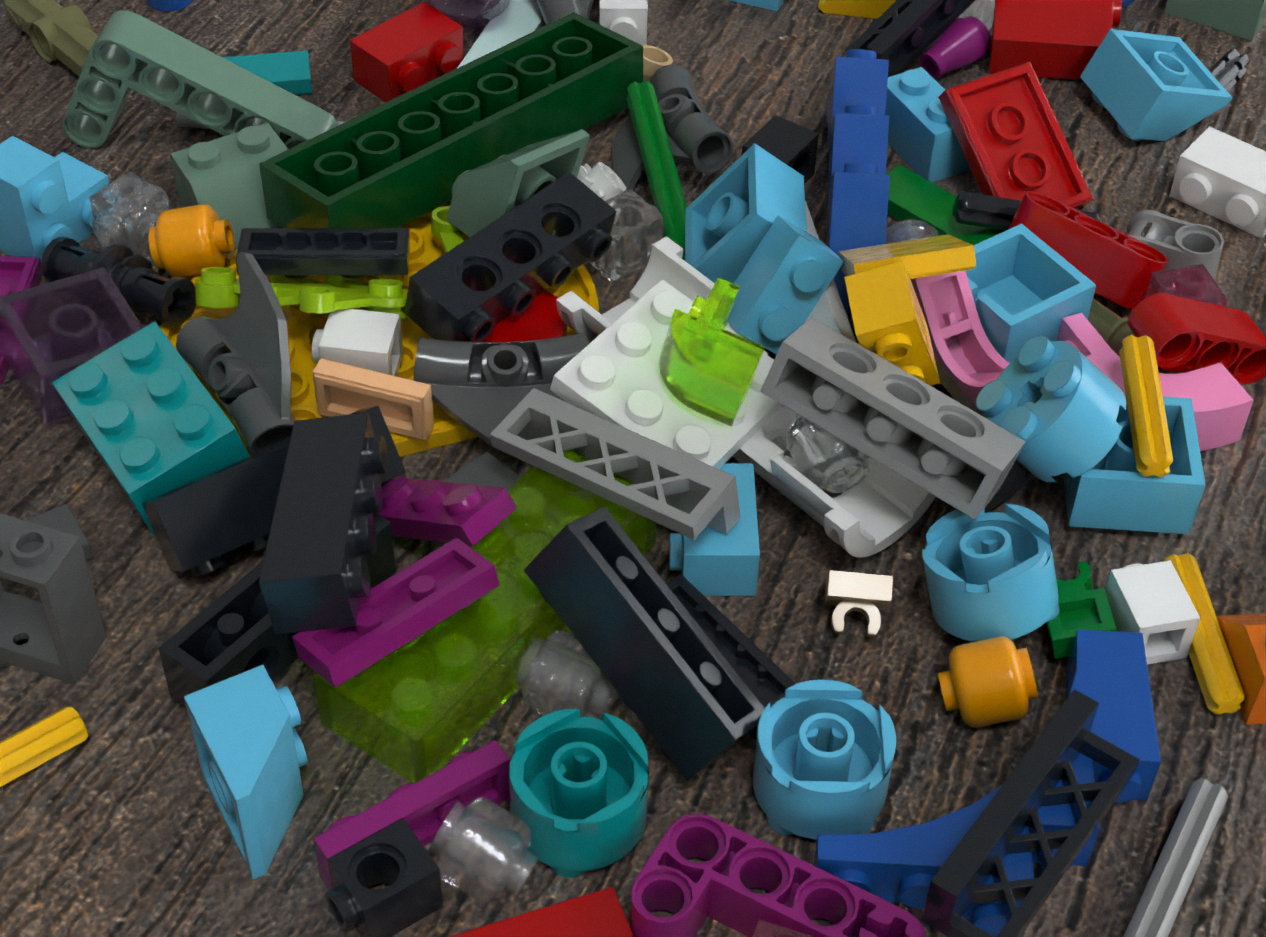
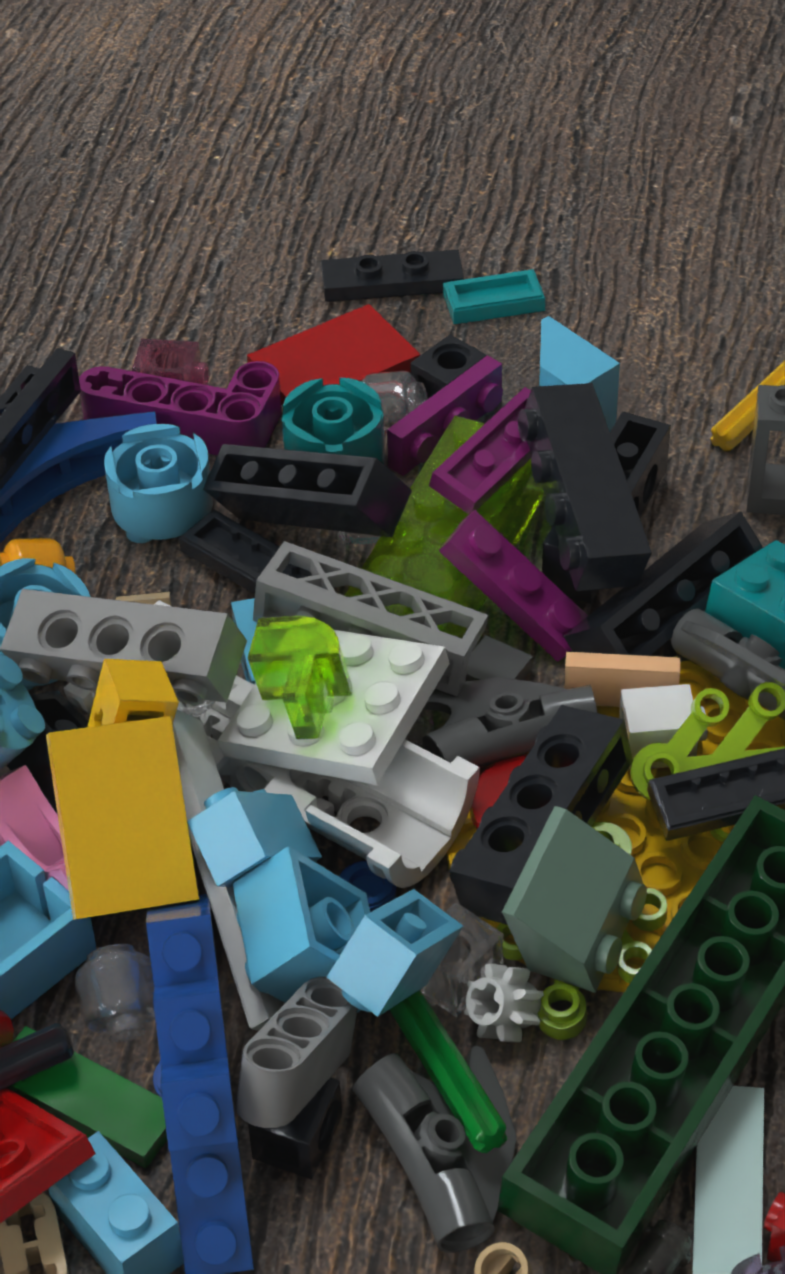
camera: 170 degrees right, 0 degrees up
(681, 153) = (393, 952): none -> medium azure brick
(783, 109) = (295, 1054): none -> light grey beam

